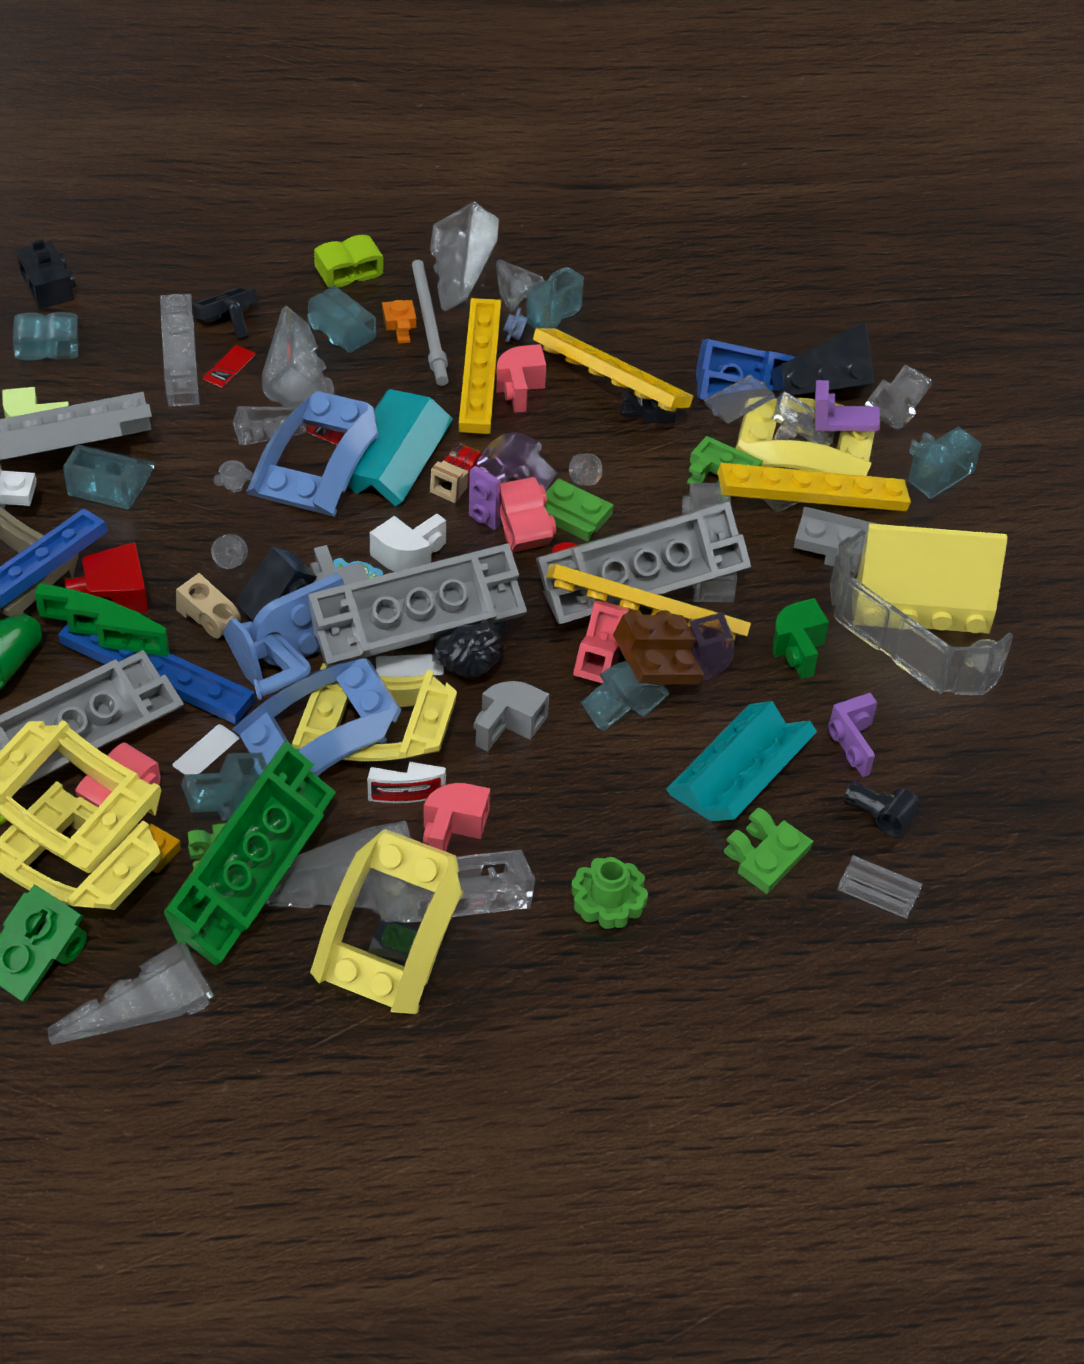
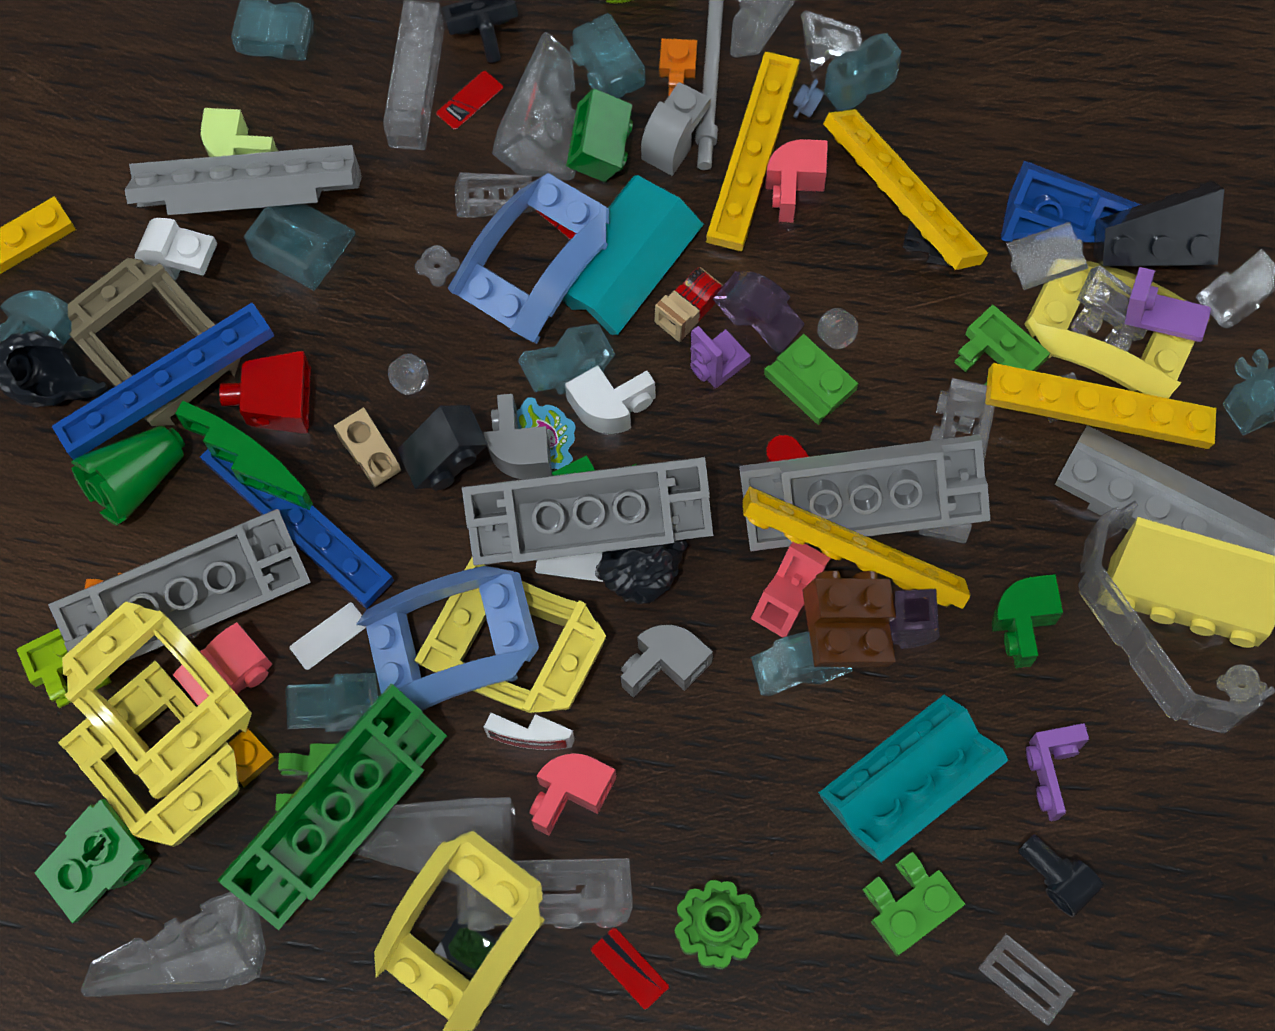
camera: 20 degrees right, 20 degrees up
(280, 636) = (432, 512): medium blue plate -> none
(350, 367) = (600, 135): none -> green brick
(371, 511) = (574, 354): none -> clear light blue brick
(409, 356) = (670, 128): none -> light grey brick
(524, 515) = (748, 385): coral brick -> none
(541, 944) = (629, 968): none -> red sticker

